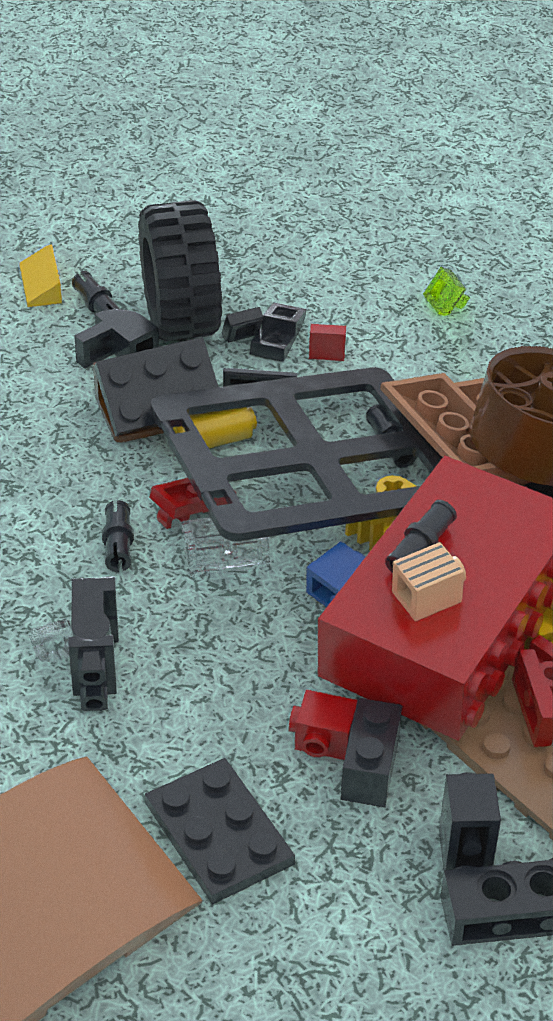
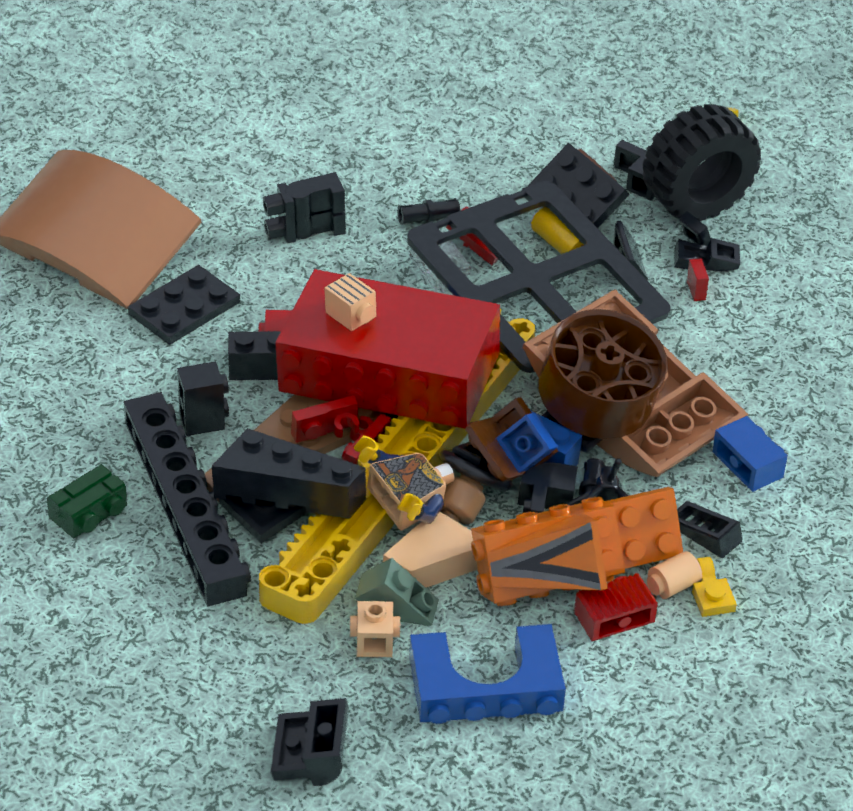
camera: 75 degrees right, 0 degrees up
(424, 532) = (398, 296): black pin -> none
(446, 292) = (807, 340): clear neon green tile -> none

